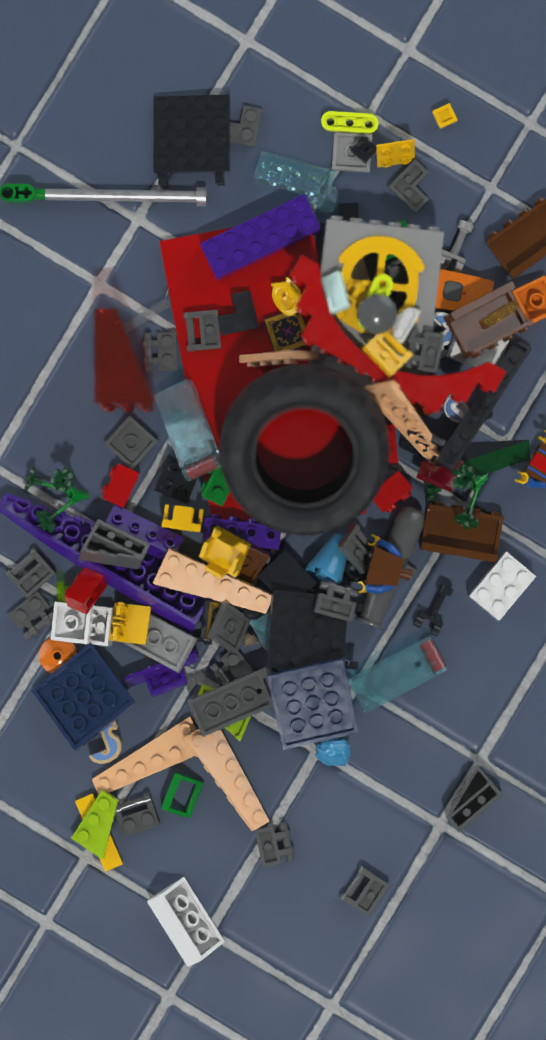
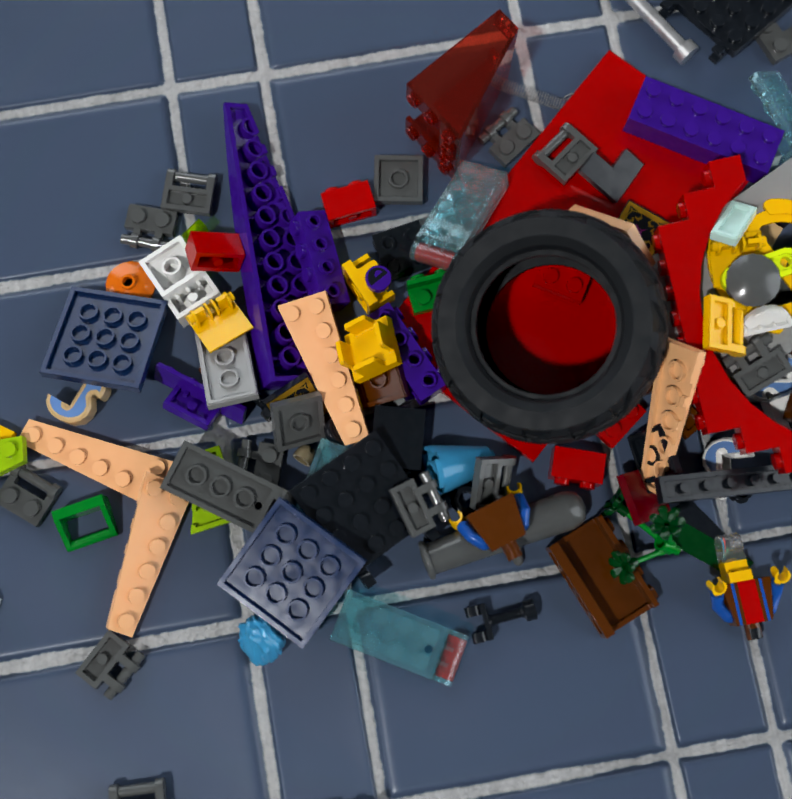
camera: 45 degrees right, 10 degrees down
(61, 483) = (294, 134): dark green plant -> none
(113, 547) = (280, 237): dark grey wedge -> none
(189, 514) = (378, 279): none -> dark purple tile
(285, 296) = (666, 198): yellow hat -> none
(502, 586) = (586, 667): white brick -> none
(515, 452) = (732, 558): none -> leg

